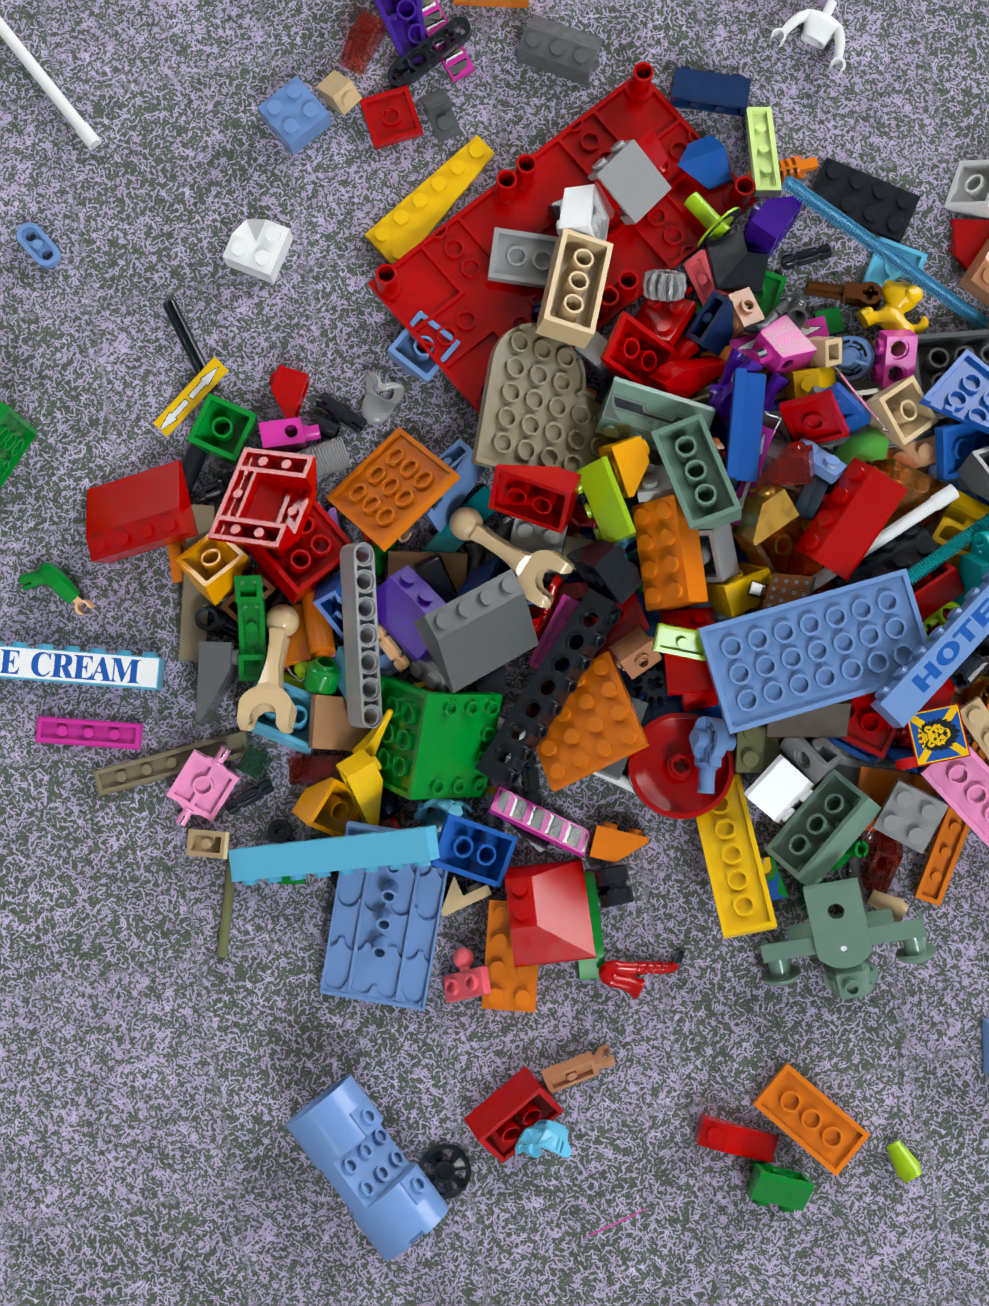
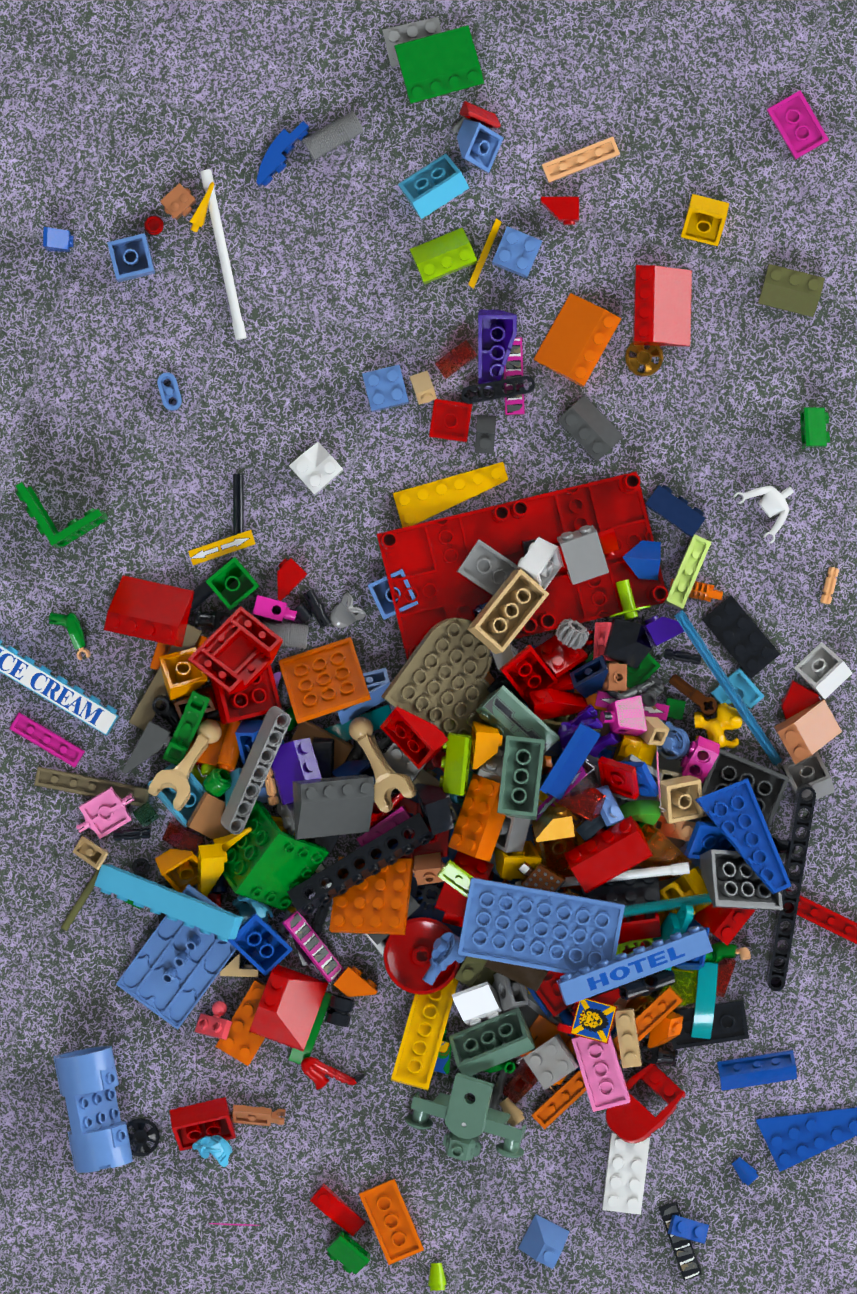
camera: 30 degrees right, 5 degrees up
(935, 91) = (829, 585): none -> light nougat axle

